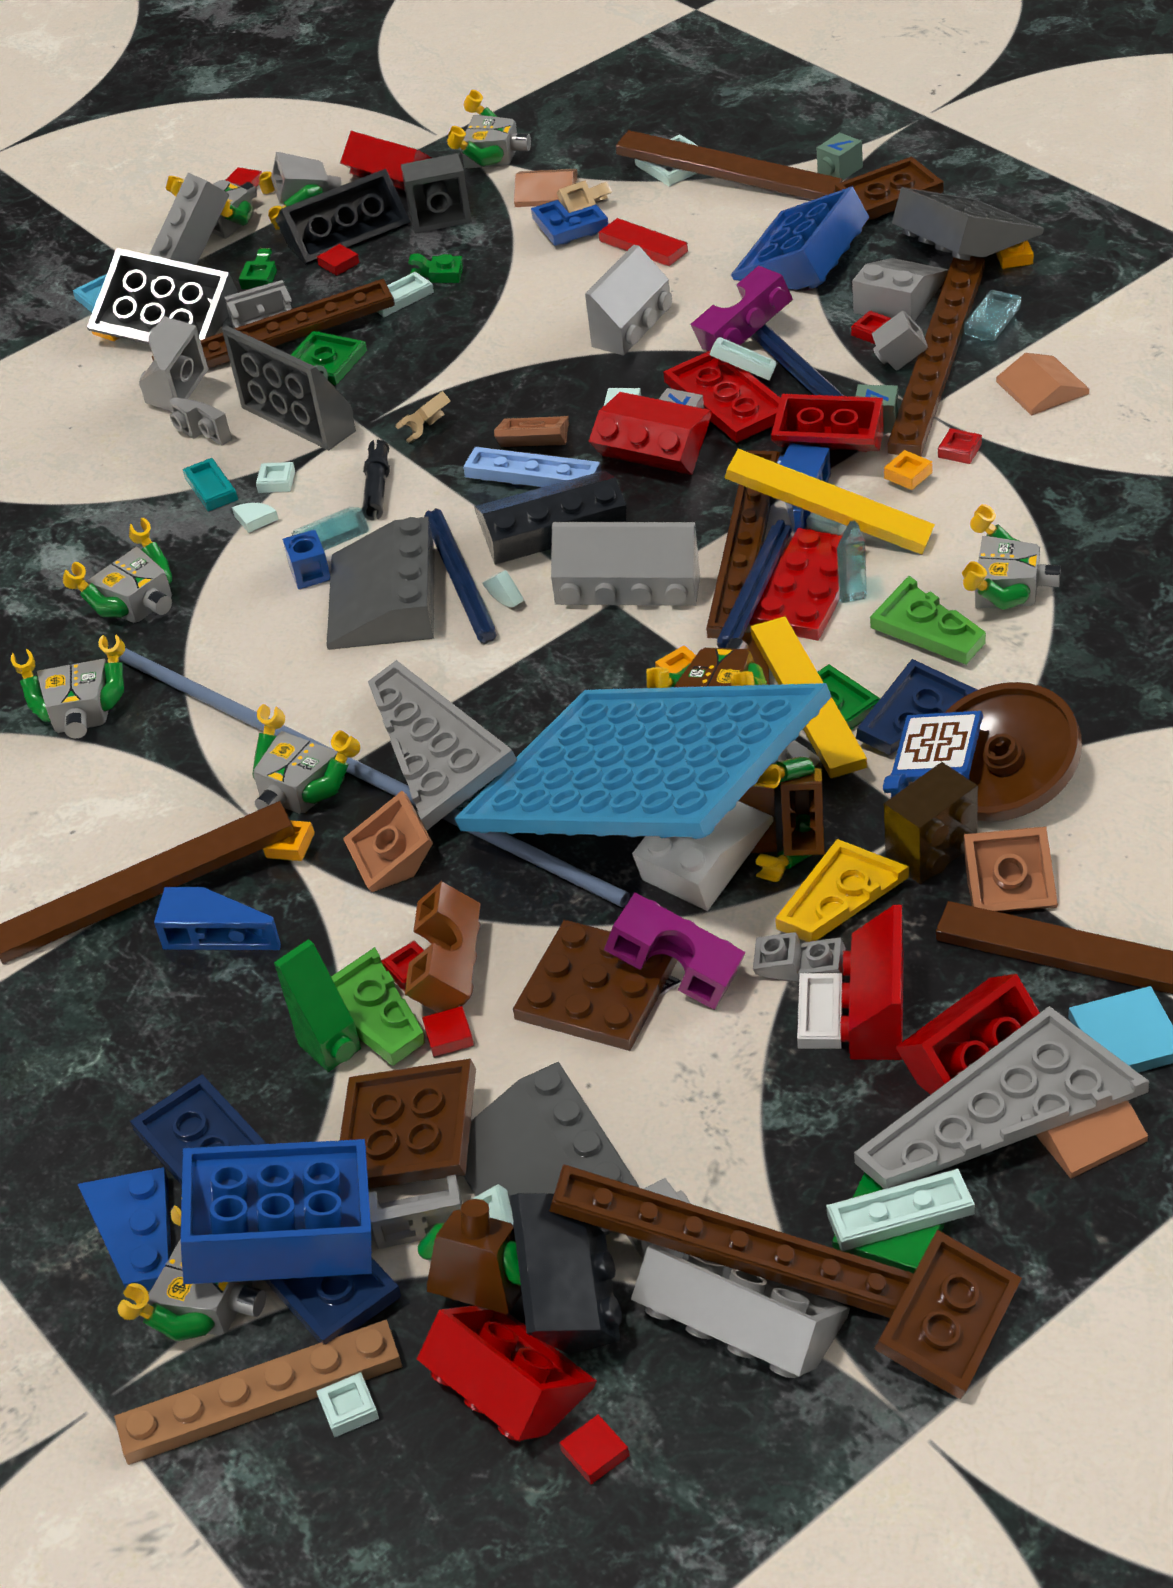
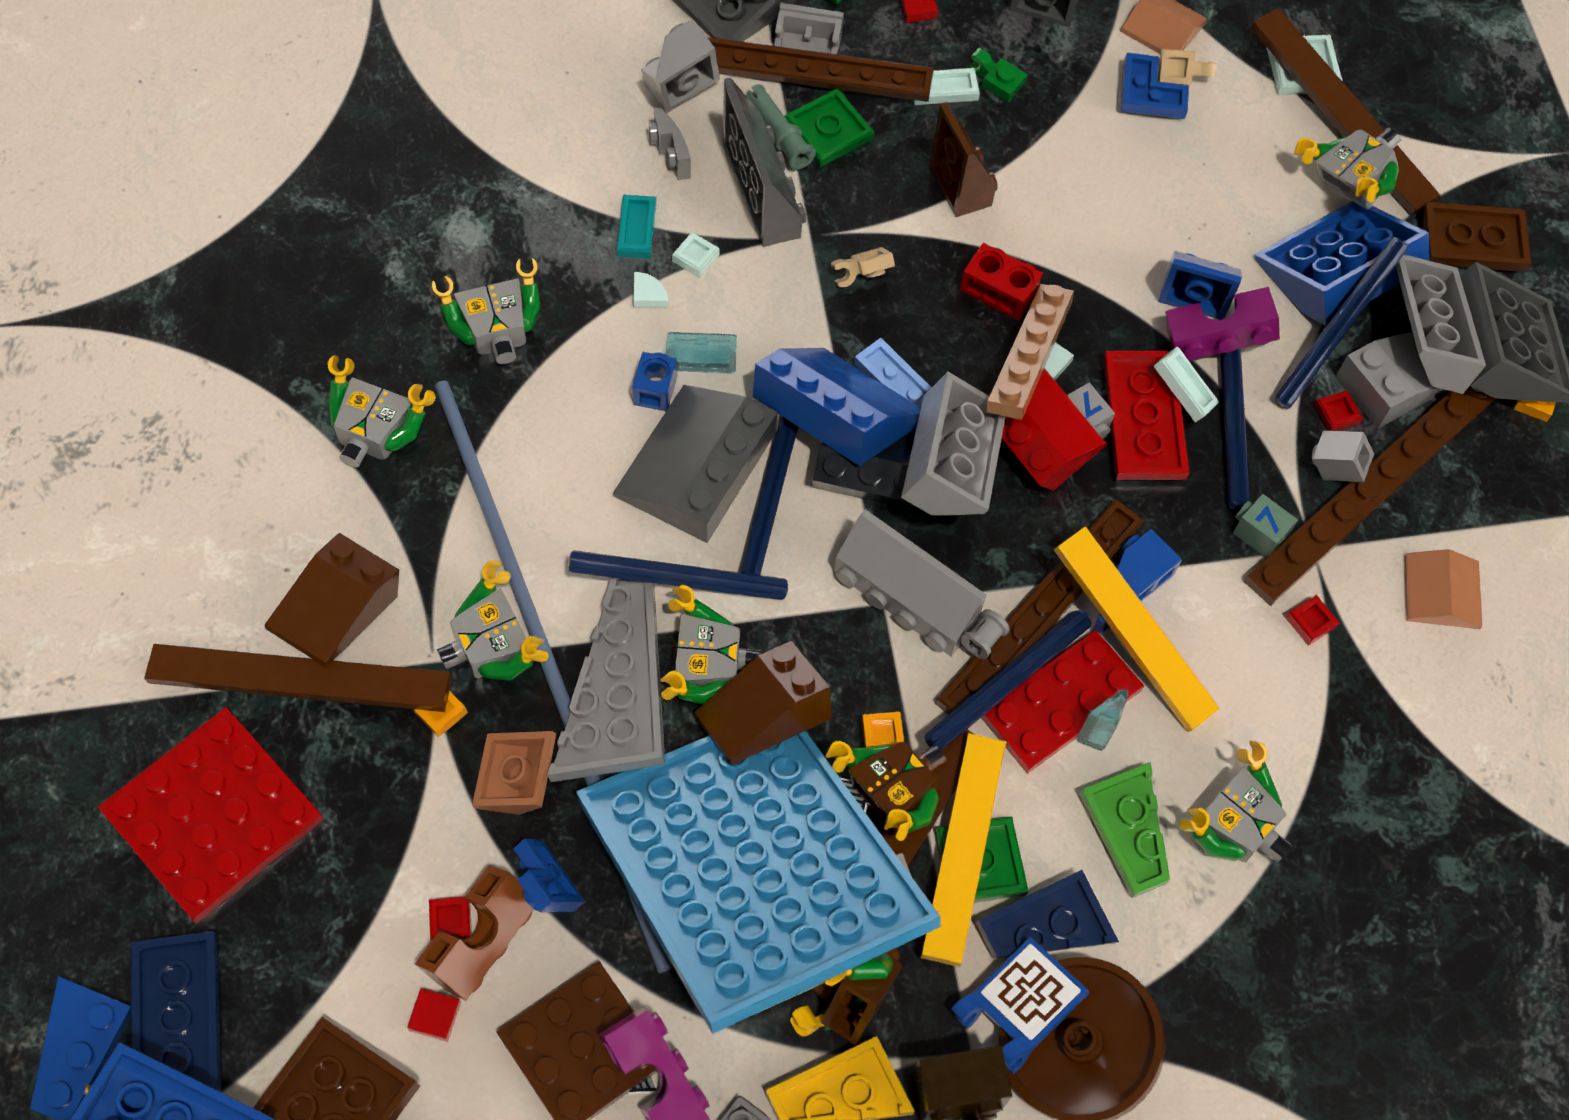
camera: 20 degrees right, 20 degrees up
(132, 1013) = (210, 814): none -> red plate
(137, 808) = (334, 599): none -> reddish brown slope
(209, 921) = (314, 752): blue slope -> none
(316, 1007) = (329, 943): green slope -> none
(376, 472) = (781, 307): black pin -> none
(377, 1008) = (388, 944): bright green wing -> none
(426, 653) = (677, 575): none -> dark blue axle
(453, 314) = (960, 166): none -> reddish brown slope
(469, 486) = (833, 401): none -> blue slope
(479, 884) = (544, 881): none -> blue plate
(491, 690) = (705, 652): none -> torso
(503, 589) = (796, 531): light aqua tile -> none
(532, 431) = (947, 344): nougat slope -> none
(544, 373) = (998, 285): none -> red brick
(571, 684) = (766, 704): none -> reddish brown slope
(594, 455) = (953, 451): none -> light grey slope
(605, 386) = (1030, 352): none -> medium nougat plate
(626, 302) = (1128, 242): light grey slope -> none
(655, 244) = (1203, 158): red tile -> none
(695, 293) = (1200, 281): none -> blue slope
(712, 570) = (985, 633): none -> light grey bush
(765, 185) = (1356, 164): none -> torso
(829, 422) = (1202, 527): red slope -> none
(831, 268) = (1341, 323): none -> dark blue axle
(840, 156) = (1456, 165): sand green brick -> none
(905, 232) = (1441, 323): none -> light grey slope
(908, 470) = (1242, 623): light orange plate -> none
(992, 315) = (1456, 473): clear light blue plate -> none

